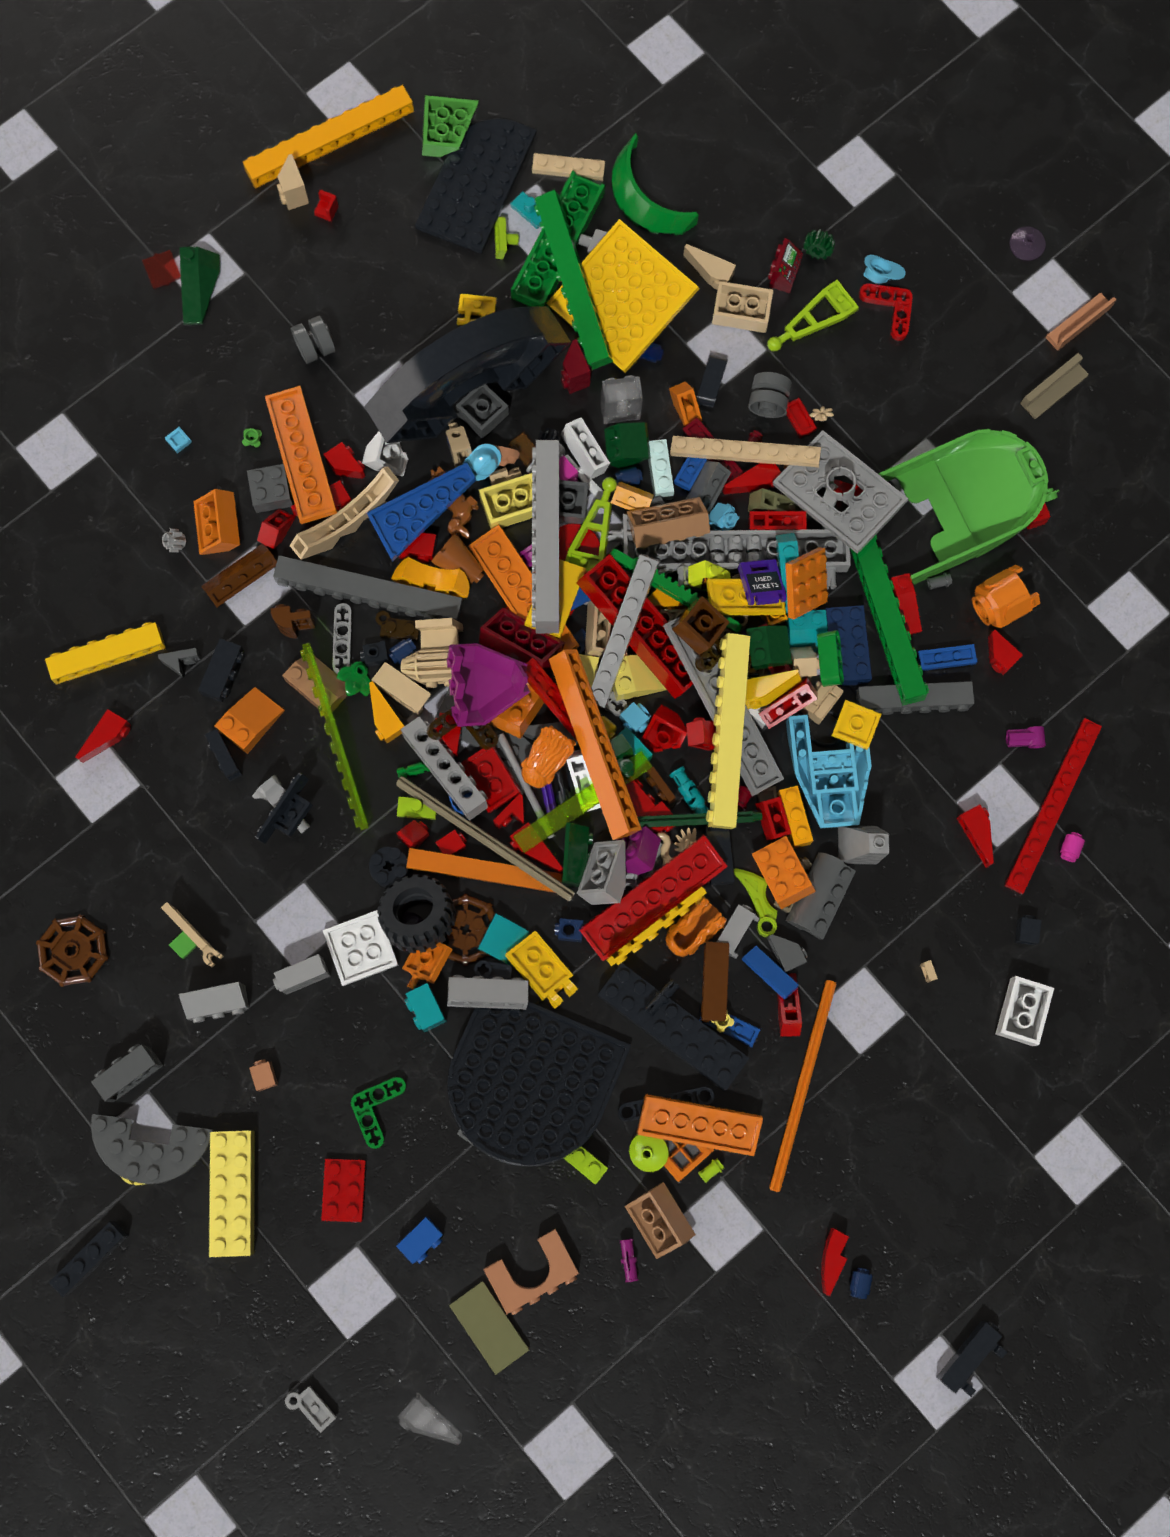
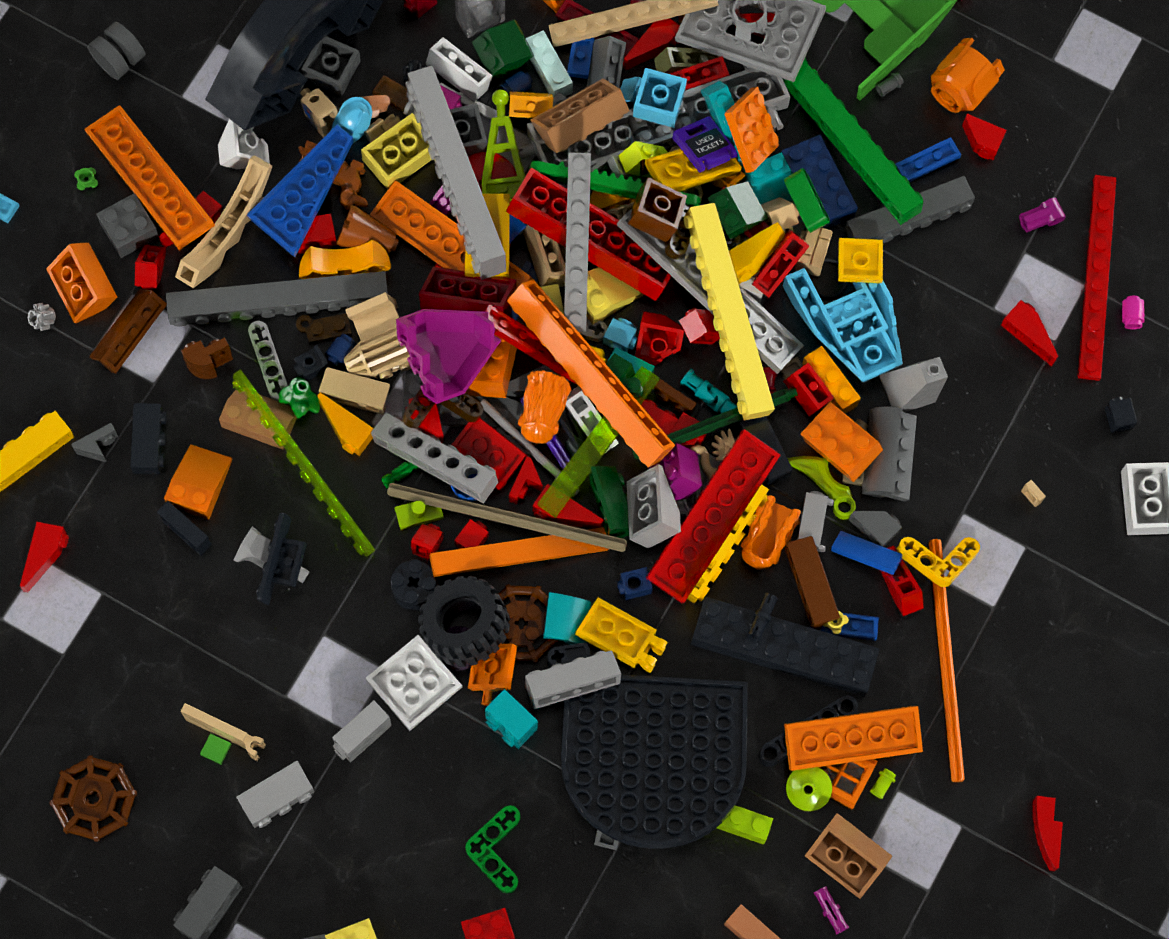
camera: 20 degrees left, 5 degrees down
(263, 1075) = (359, 856): nougat brick -> none
(343, 463) = (198, 171): red slope -> none
(739, 530) = (659, 97): none -> medium azure brick
(825, 1005) = (938, 565): none -> yellow beam
(861, 1283) = (1086, 844): dark blue brick -> none
(908, 604) = (859, 106): red slope -> none

